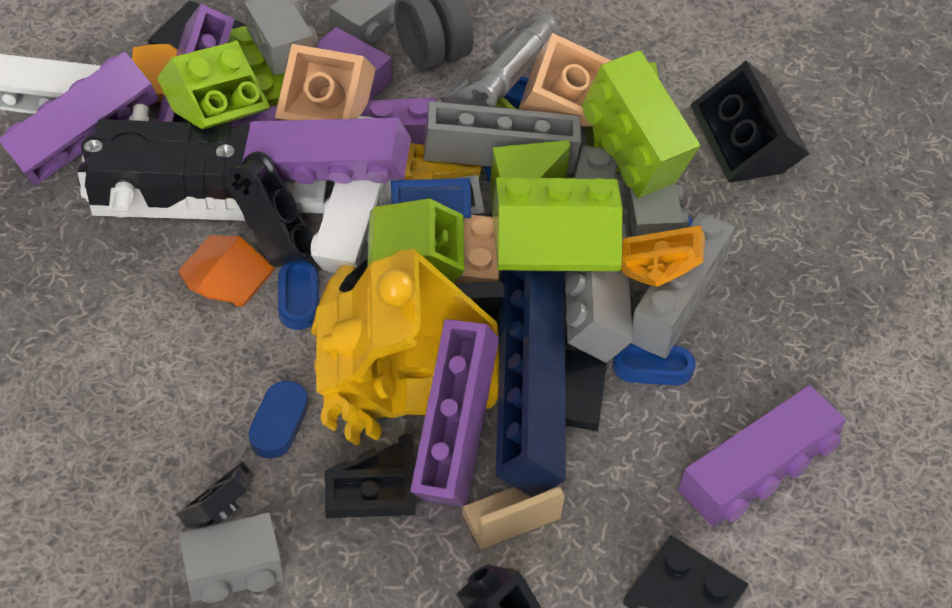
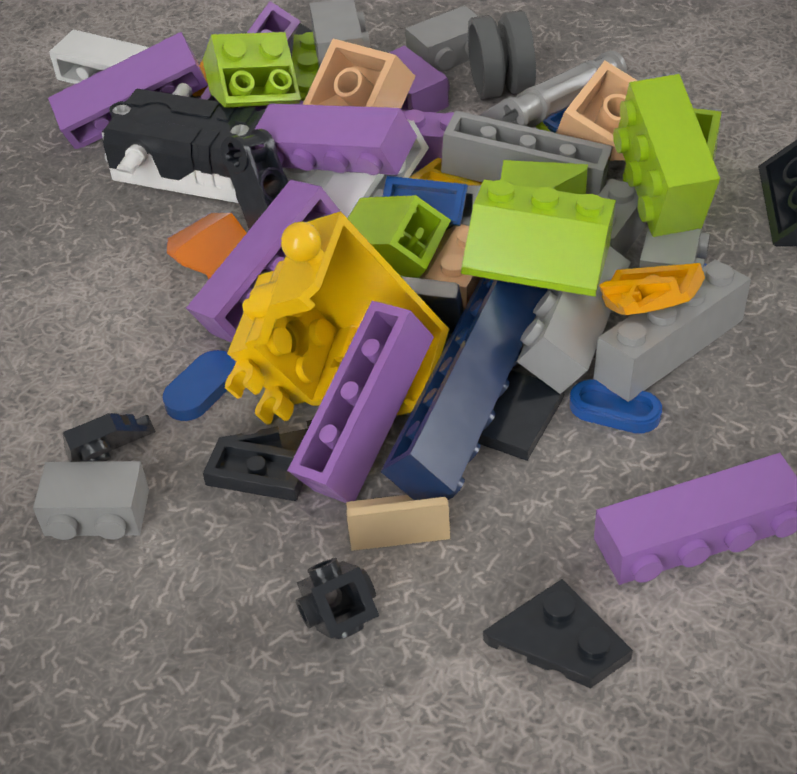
camera: 25 degrees right, 5 degrees down
(303, 280) = (221, 298): none -> medium lavender brick

